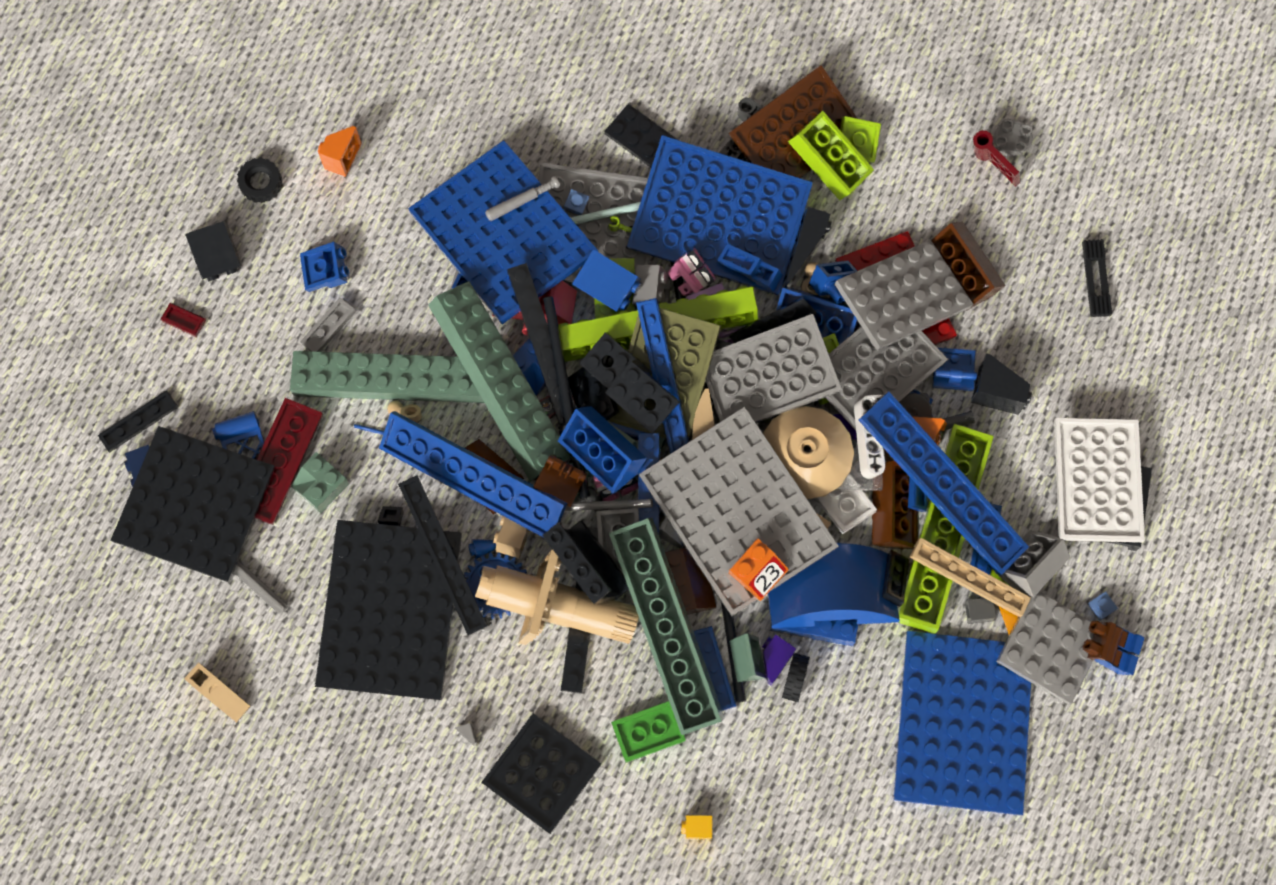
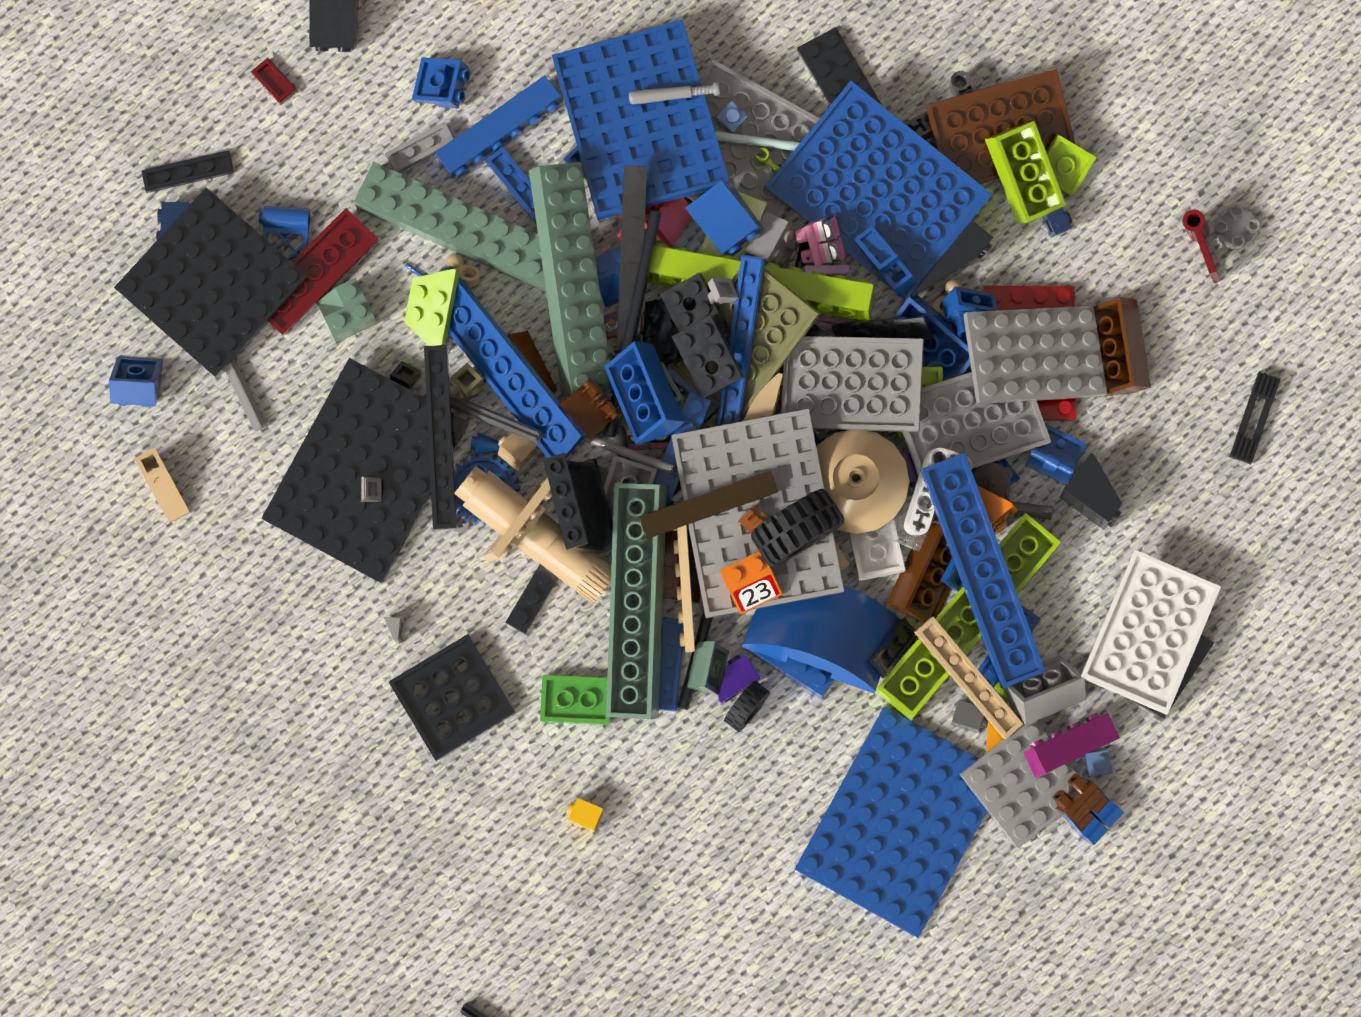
camera: 25 degrees right, 5 degrees up
(160, 613) = (135, 381): none -> blue slope
(386, 285) = (499, 127): none -> blue brick
(390, 449) = (432, 305): none -> wing
(400, 623) = (370, 489): none -> light grey slope
(419, 324) = (513, 179): none -> blue plate
(446, 500) = (468, 381): none -> olive brick
(501, 521) = (495, 419): none -> dark grey axle
(631, 339) = (722, 291): none -> light grey tile
(695, 519) = (708, 504): none -> dark brown tile
(703, 601) = (684, 591): none -> tan plate
(739, 517) = (752, 518): none -> dark orange tile
(781, 506) = (797, 527): none -> black tyre
(874, 183) = (1057, 222): none -> dark blue brick
(1077, 599) = (1071, 745): none -> magenta brick

